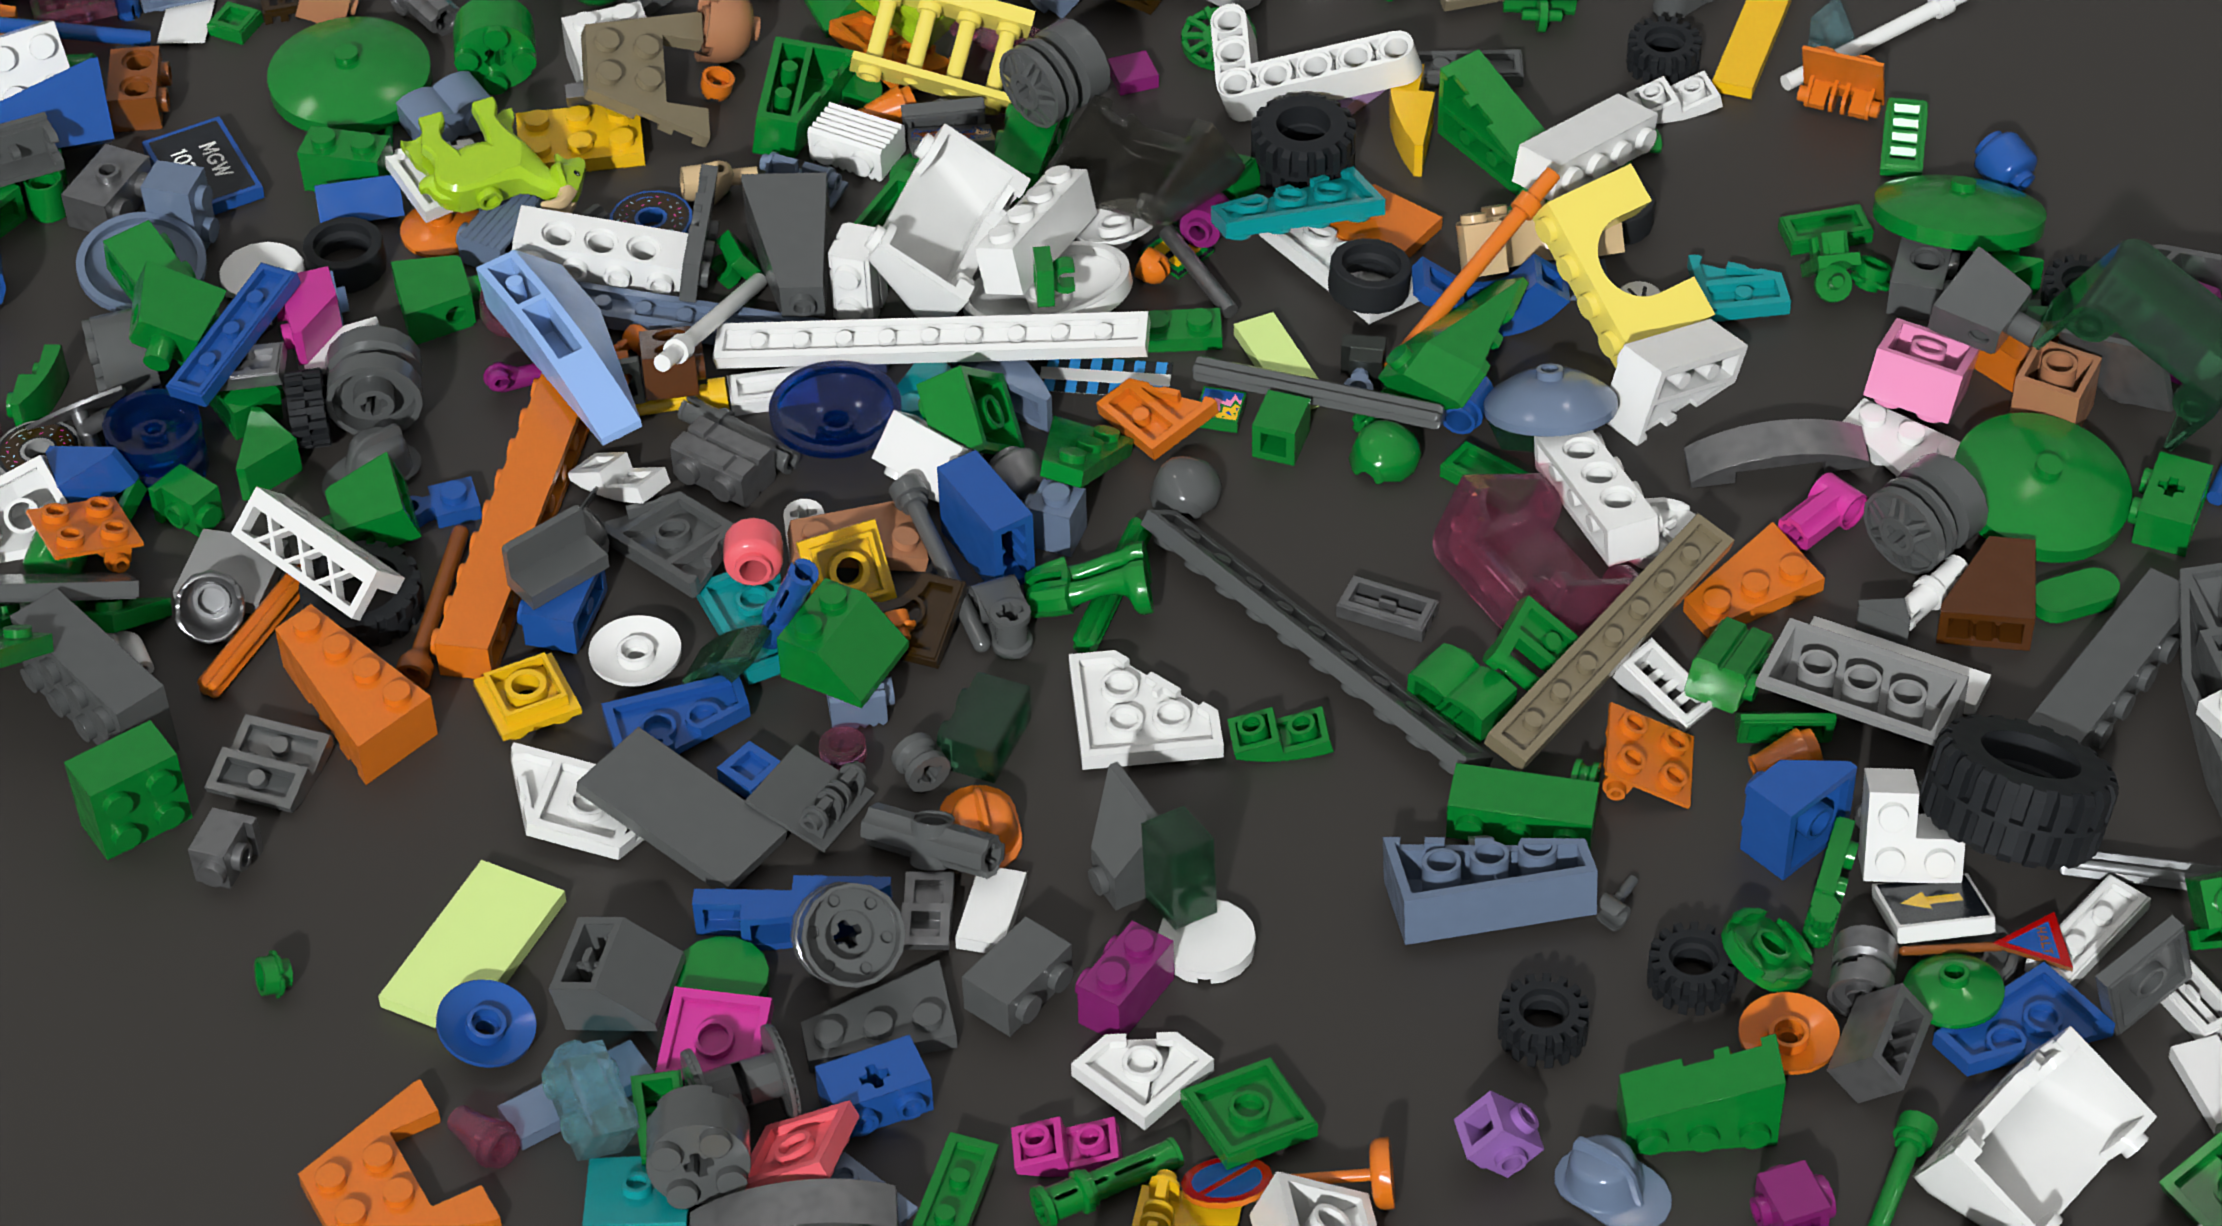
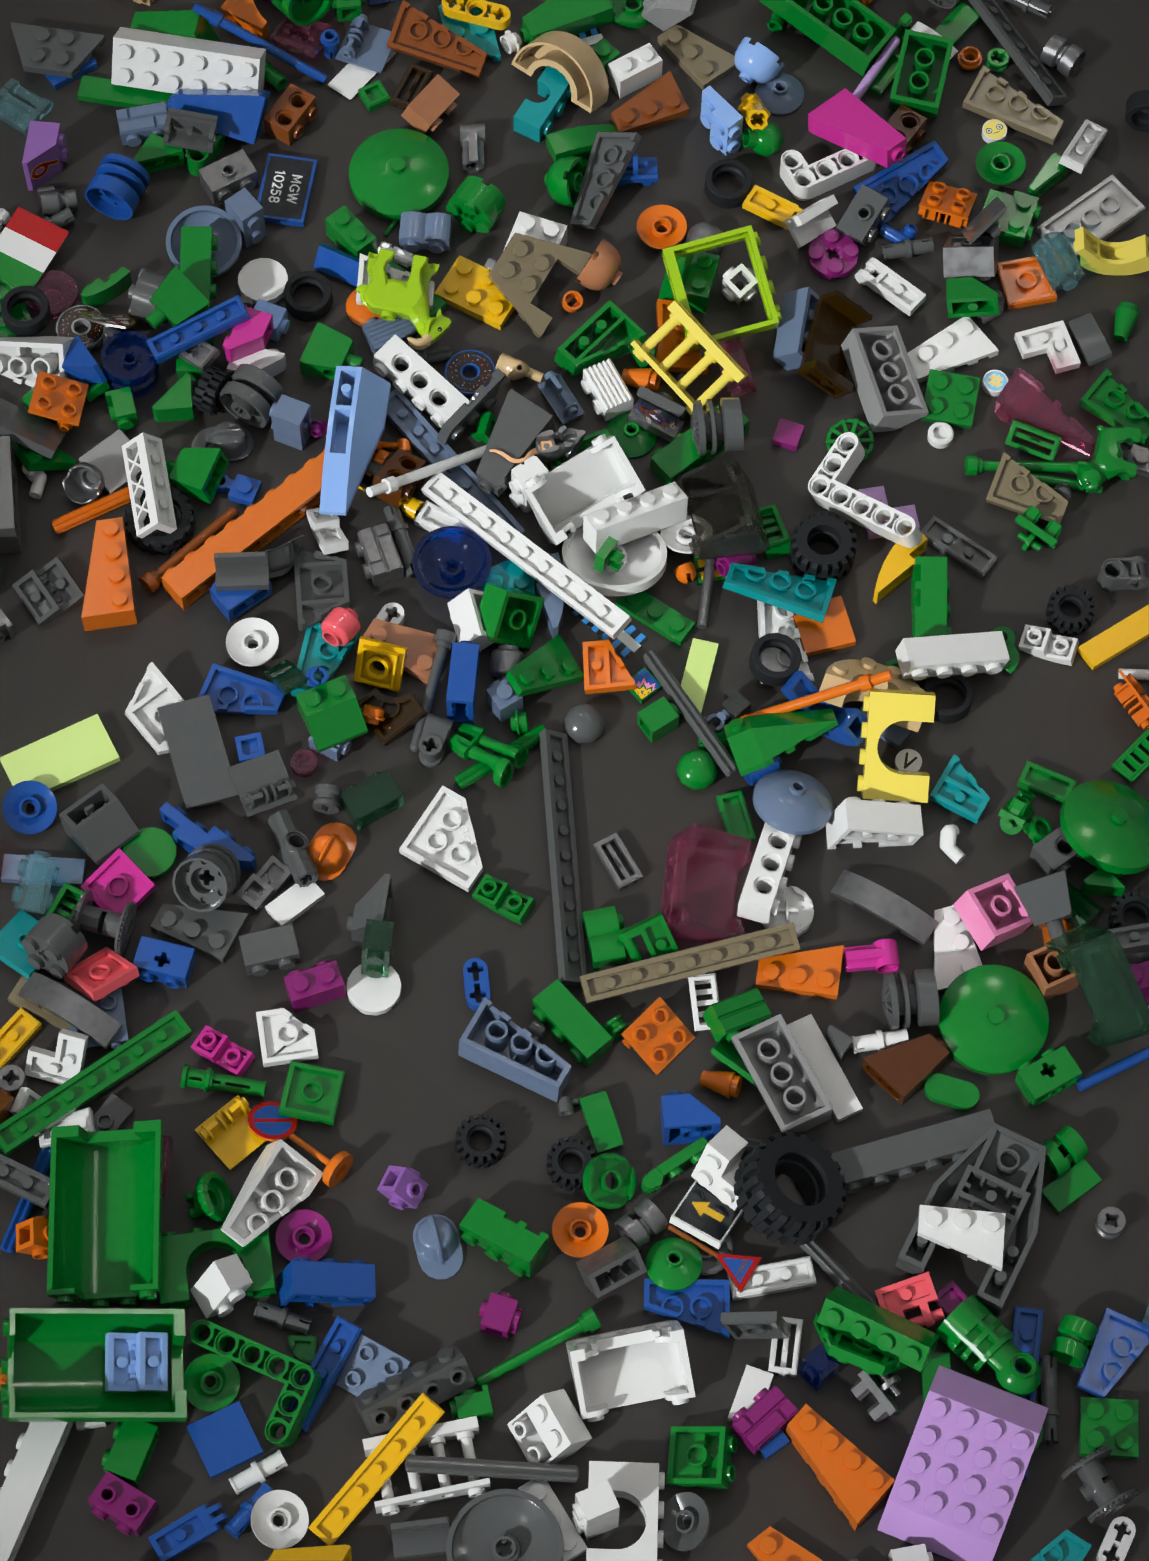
camera: 35 degrees right, 20 degrees up
(458, 379) = (291, 421): none -> sand blue brick
(522, 713) = (191, 645): yellow piece -> none
(856, 204) = (552, 445): none -> flat silver animal
(1100, 533) = (519, 722): none -> green plate
(1349, 847) = (470, 984): none -> blue beam
(1672, 890) = (601, 1121): none -> green slope
(1780, 350) = (948, 843): none -> white arm

